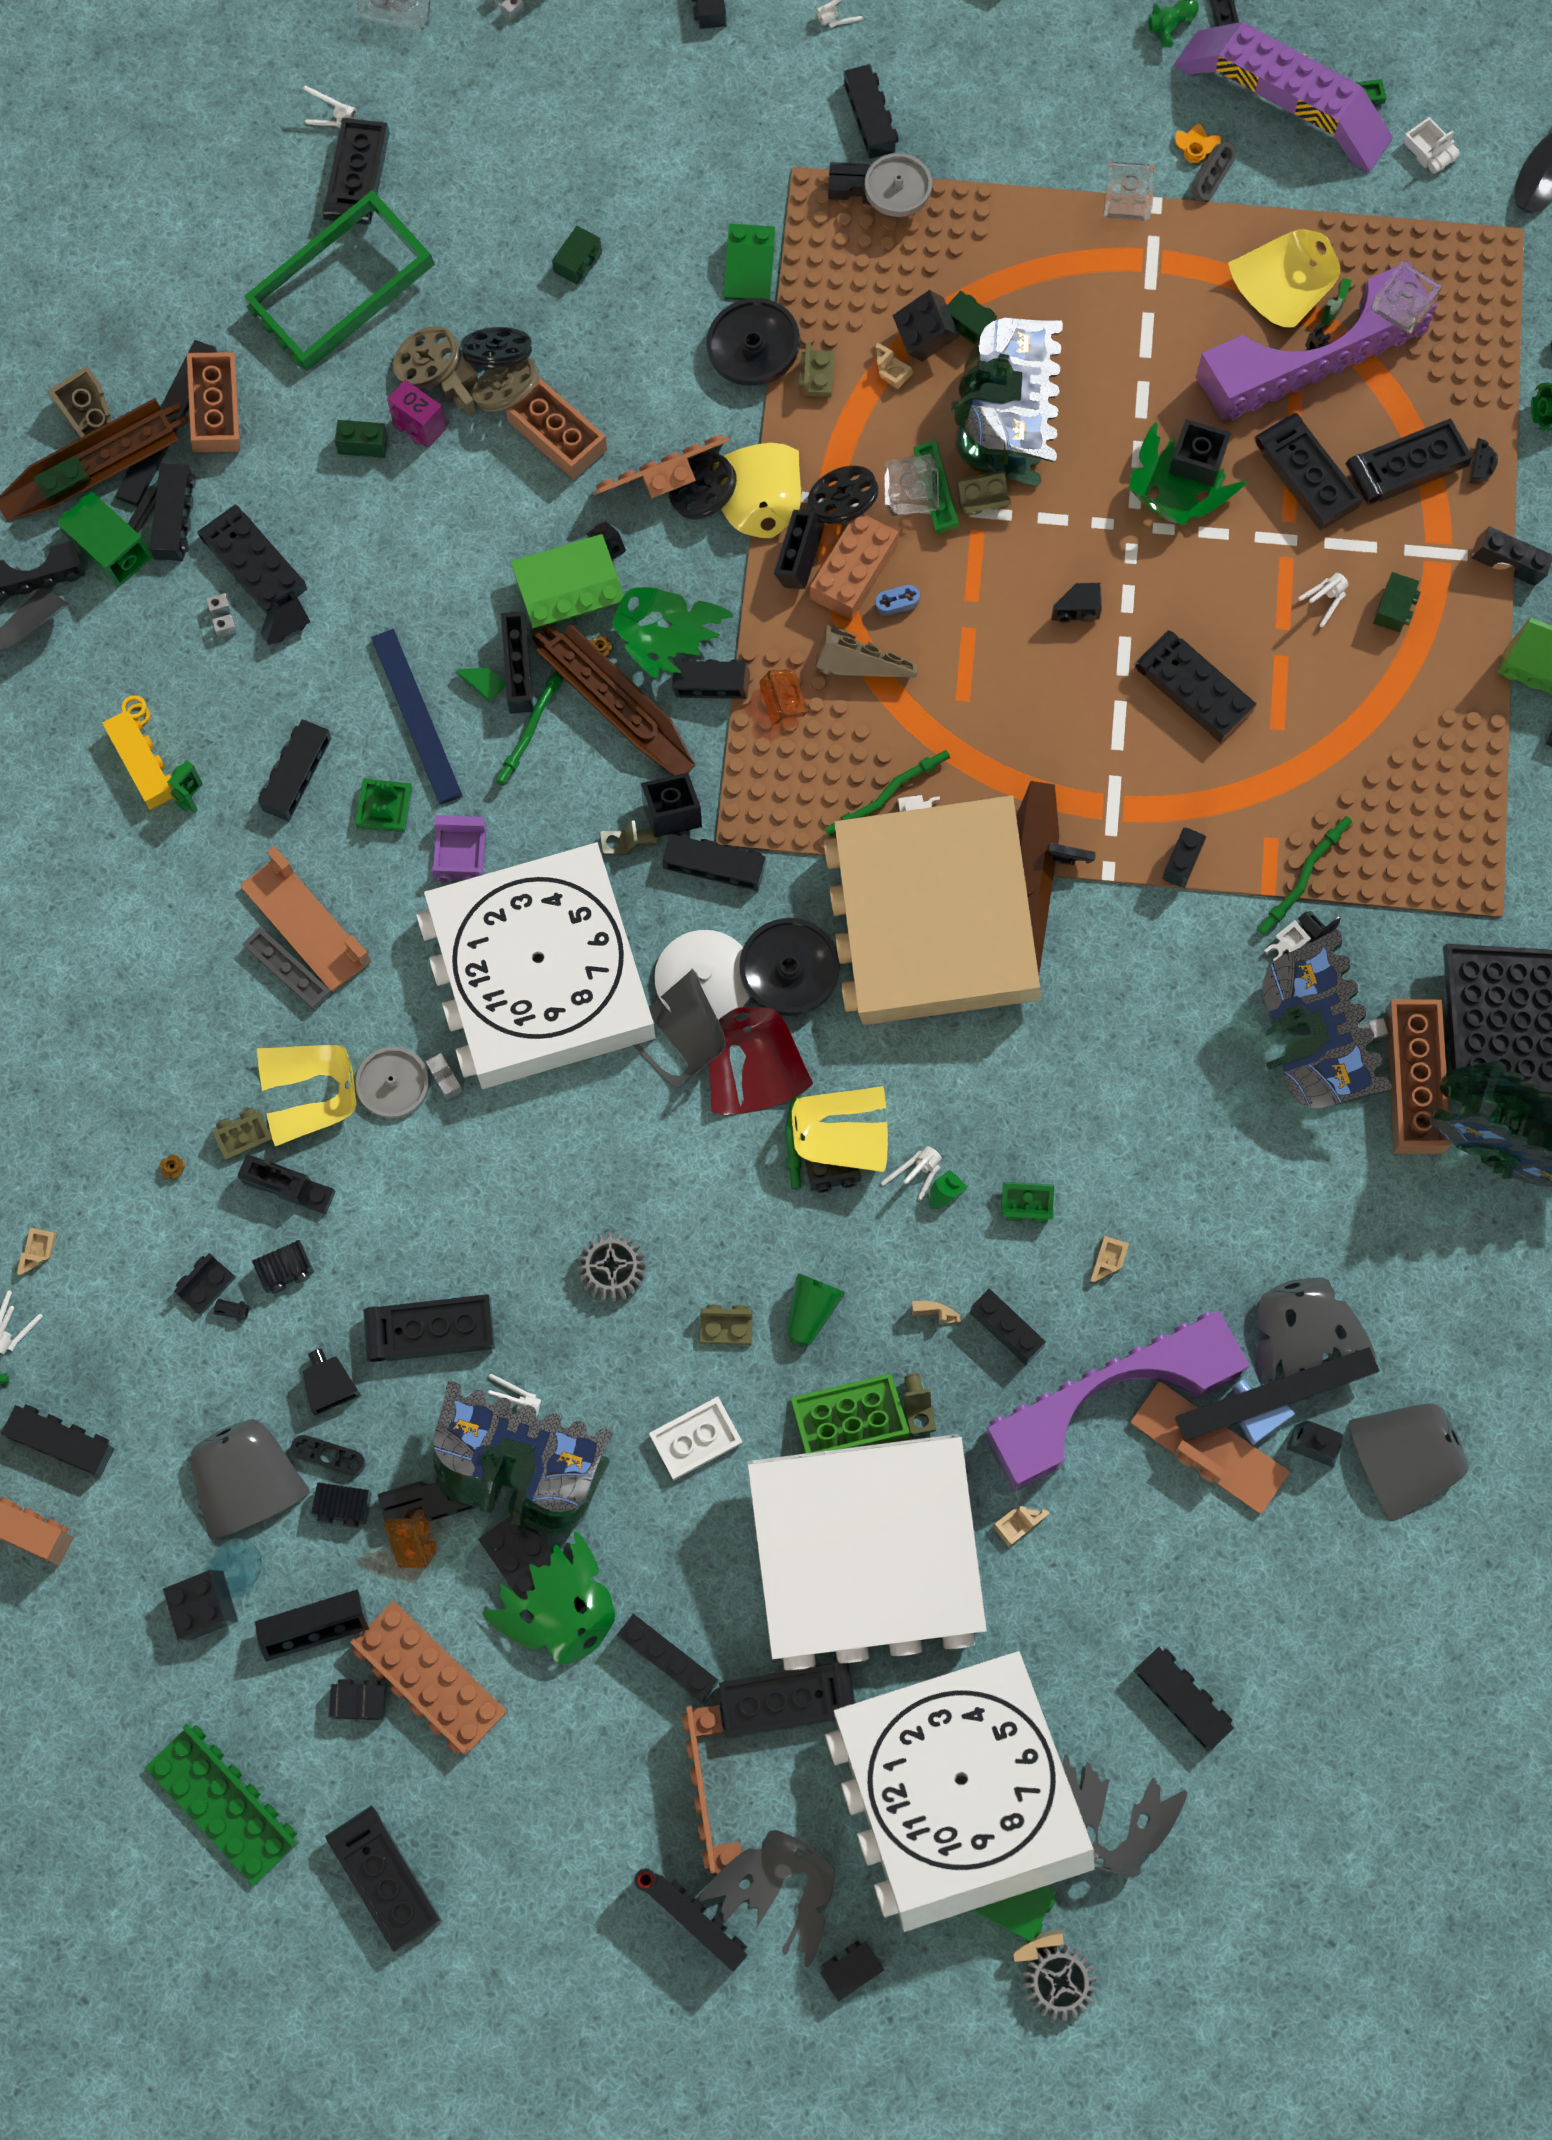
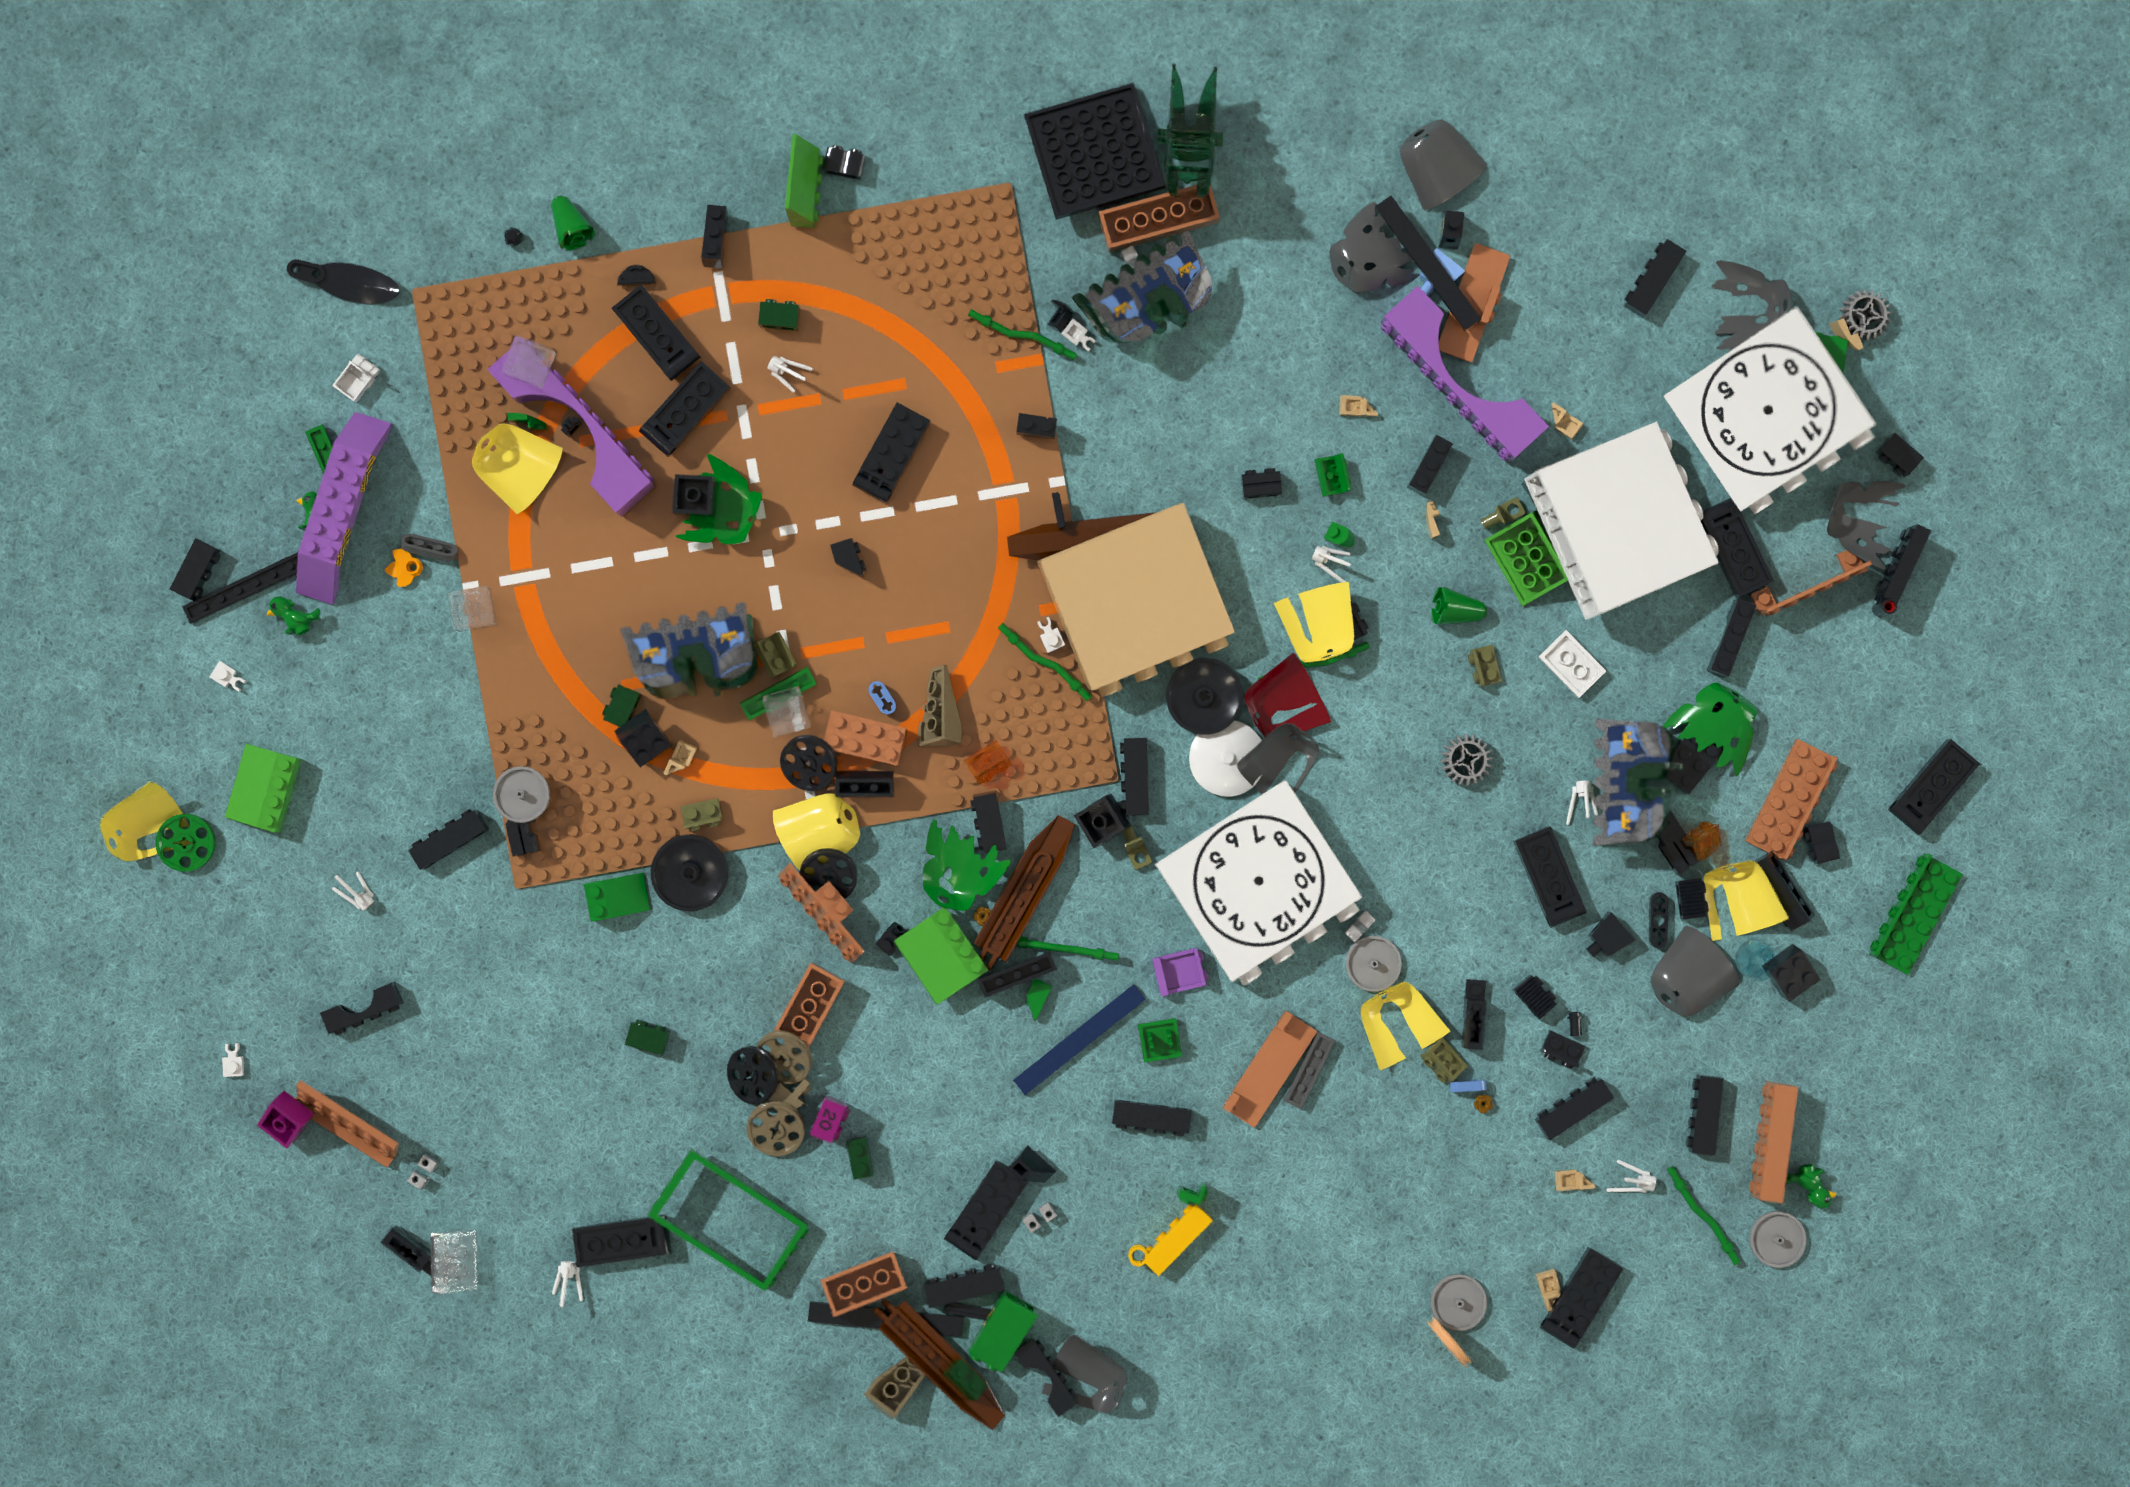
camera: 105 degrees left, 15 degrees up
(126, 1276) = (1574, 1108): none -> black brick
(200, 1153) = (1468, 1085): none -> medium blue beam
(318, 1578) = (1748, 896): none -> light yellow piece
(1039, 1110) = (1261, 484): none -> black brick

